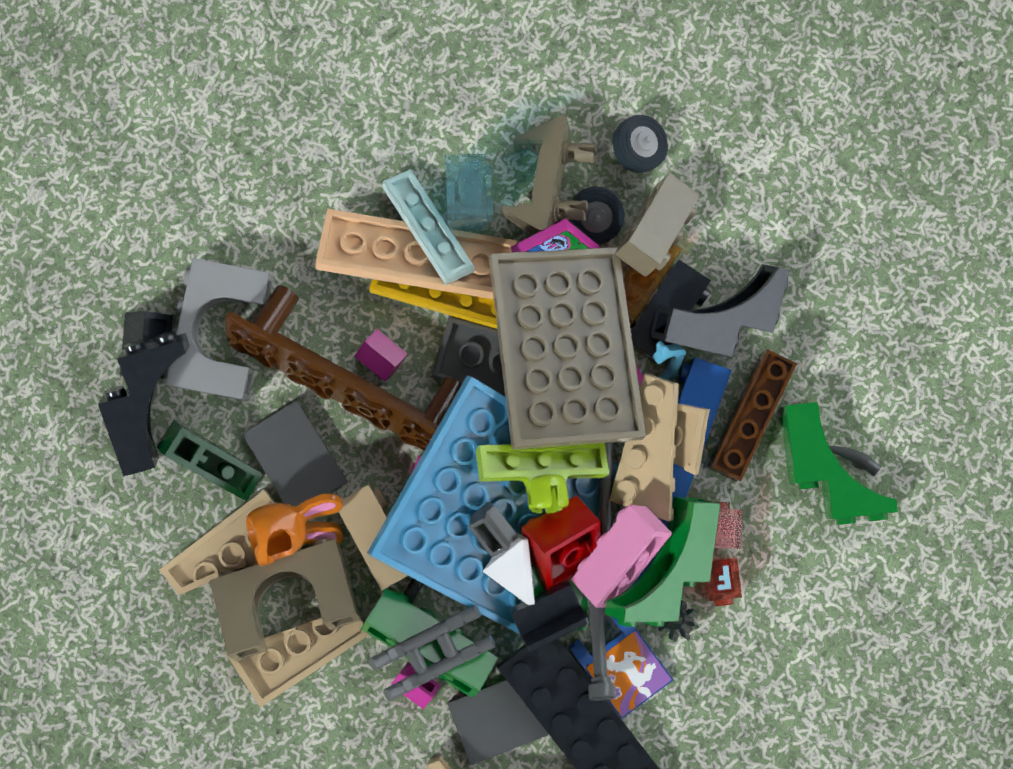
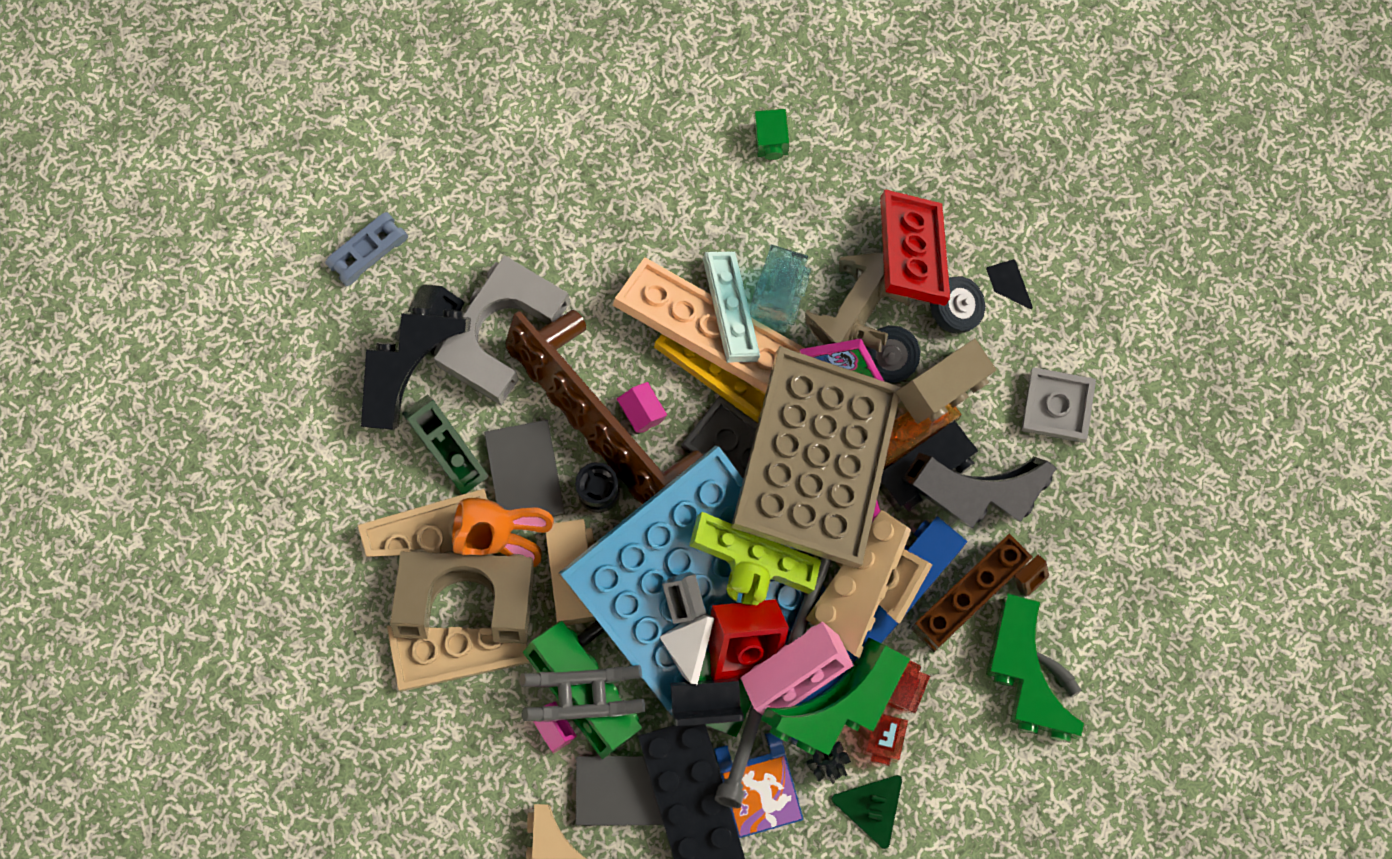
camera: 20 degrees right, 10 degrees down
(57, 298) = (366, 248): none -> sand blue plate
(369, 448) = (597, 487): none -> black wheel
(401, 39) = (771, 133): none -> green brick
(580, 105) = (914, 247): none -> red plate
(676, 355) = (909, 498): medium azure helmet -> none
(679, 102) = (1009, 283): none -> black sticker
(731, 644) = (872, 807): none -> dark green piece
(767, 205) = (1058, 405): none -> light grey plate
(800, 378) = (1032, 575): none -> reddish brown tile

